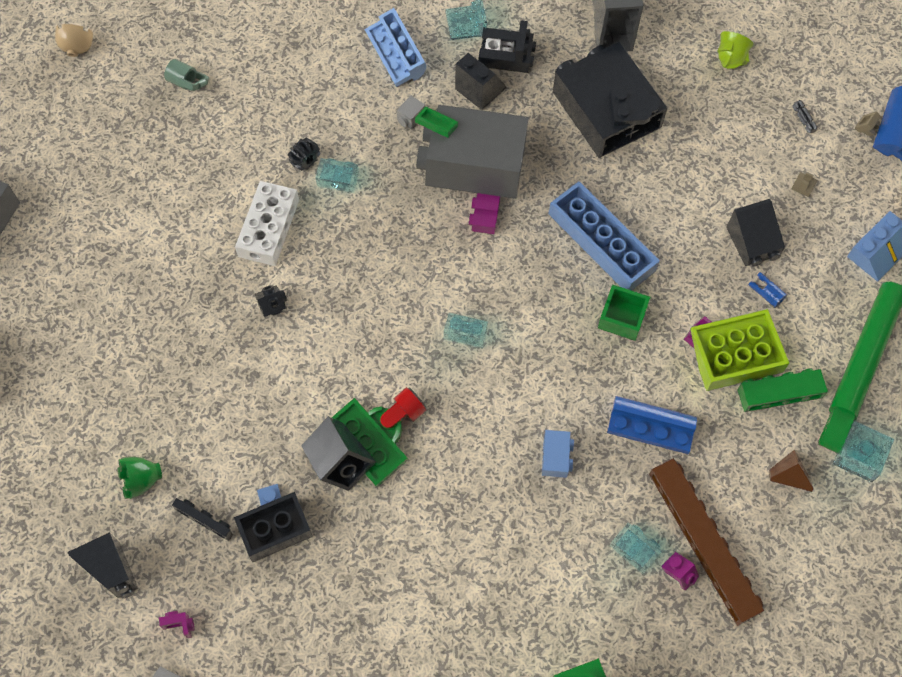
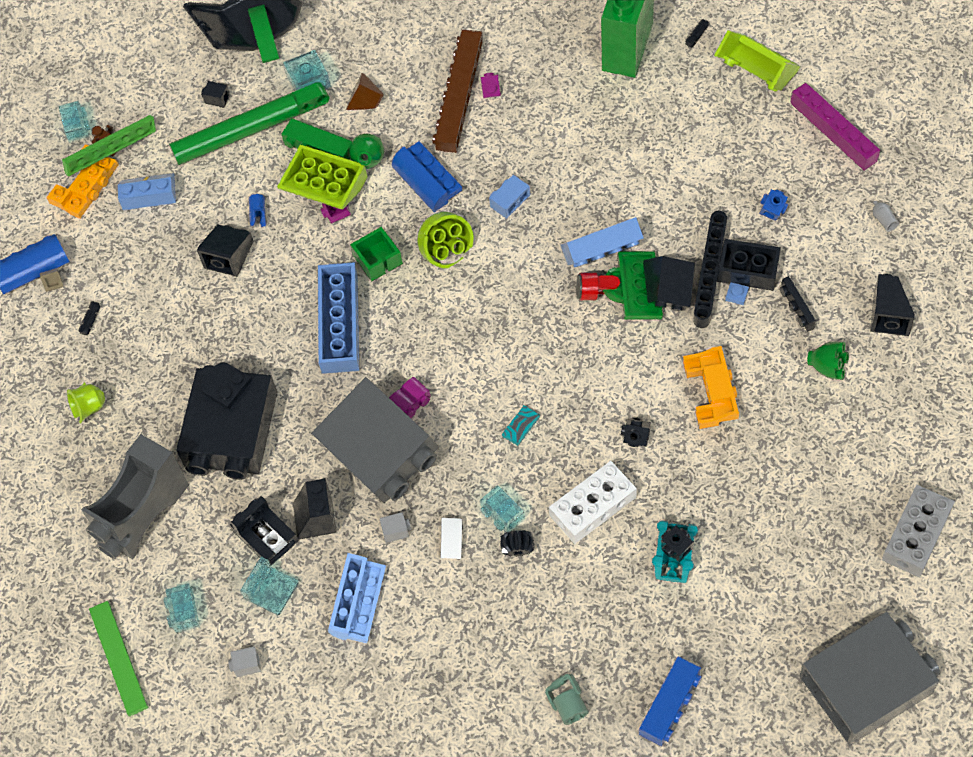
camera: 135 degrees left, 5 degrees down
(107, 119) = (669, 701): none -> blue brick
(166, 213) = (676, 543): none -> black brick
(175, 619) = (857, 249): magenta bracket -> none
(183, 221) = (661, 558): none -> teal piece
(232, 393) = (718, 387): none -> light orange bracket
(291, 614) = (773, 204): none -> blue brick
(315, 511) = (710, 276): none -> black beam
(361, 132) = (451, 538): none -> white slope
(376, 253) = (520, 425): none -> teal tile
(428, 453) = (606, 240): none -> medium blue brick
(436, 122) = (391, 469): green tile -> none
(465, 330) = (502, 316): clear light blue brick -> none
(585, 366) = (439, 236): none -> lime cylinder
(636, 548) = (507, 111): clear light blue brick -> none
(724, 401) = (369, 145): none -> green piece
(804, 183) = (148, 268): dark tan tile -> none

